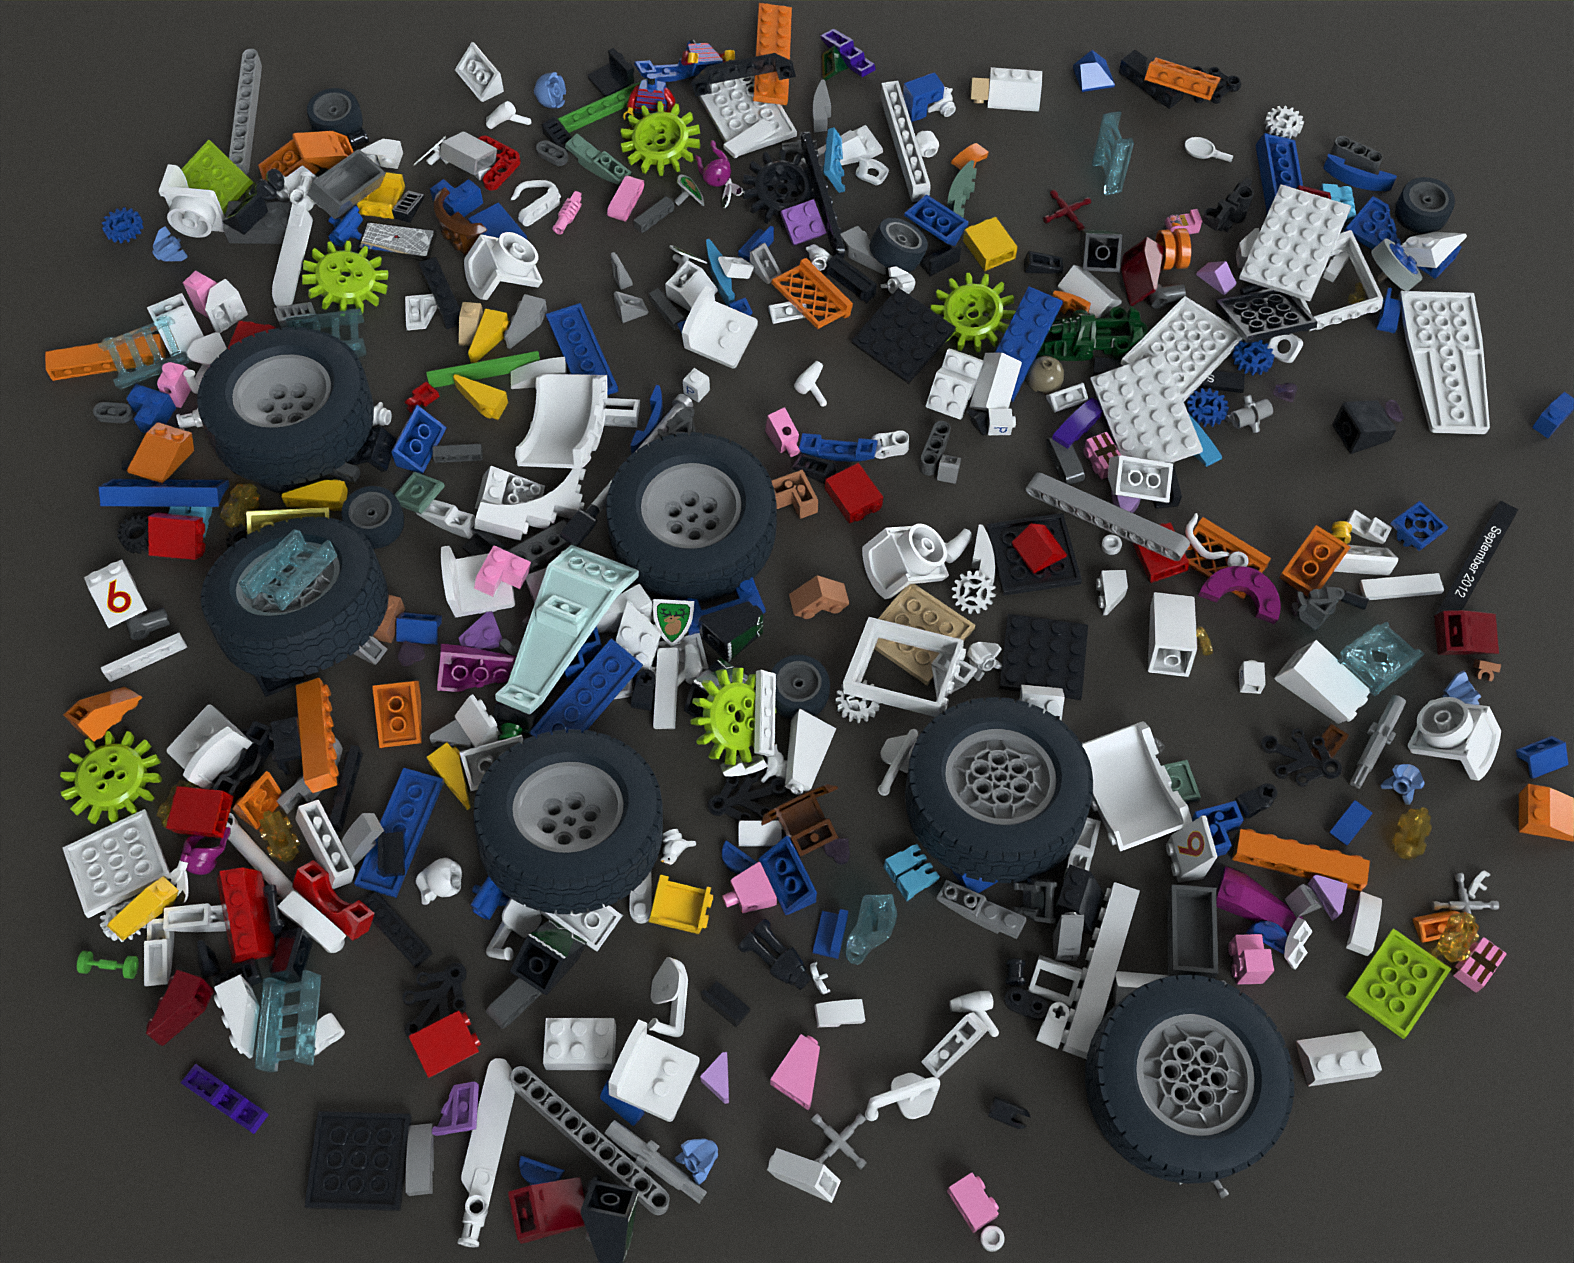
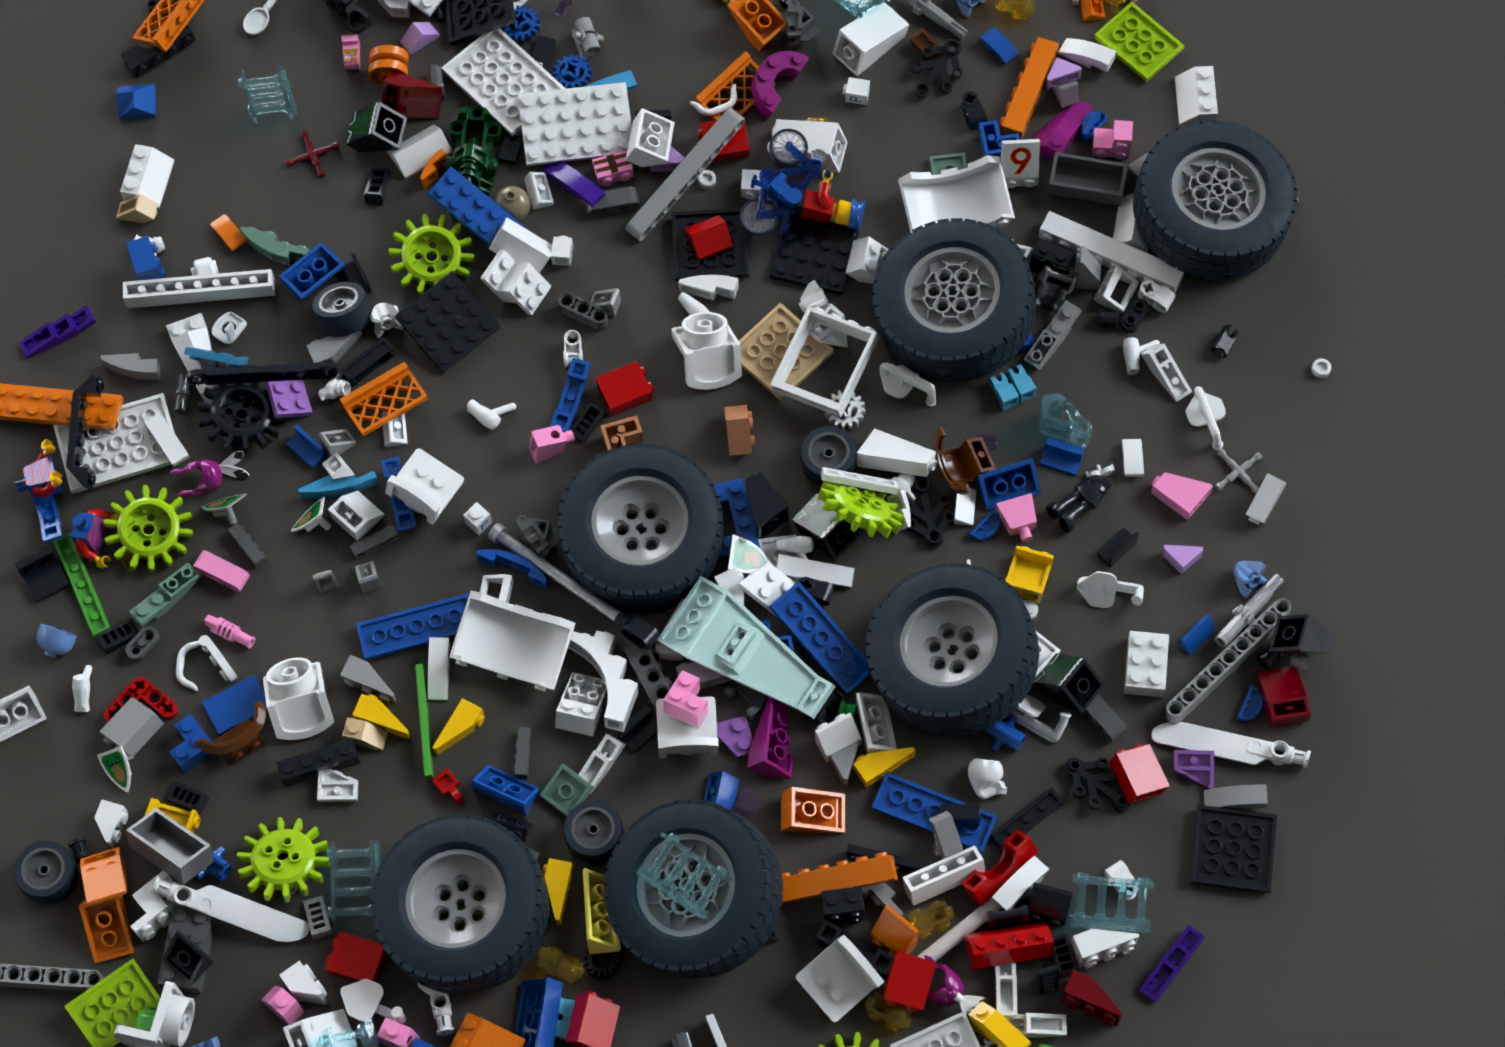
camera: 80 degrees left, 5 degrees up
(267, 187) = (147, 953): black piece -> none
(398, 241) = (235, 810): tile -> none
(652, 1074) = (1181, 601): white piece -> none
(832, 63) = (70, 350): dark green slope -> none
(967, 583) = (747, 307): white gear -> none
(973, 1202) = (1294, 376): bright pink brick -> none
(978, 420) = (556, 269): black piece -> none
(990, 243) = (345, 229): yellow brick -> none
(1149, 601) = (790, 148): none -> piece
(1237, 559) = (743, 79): white tile -> none
(1294, 946) = (1106, 107): white slope -> none

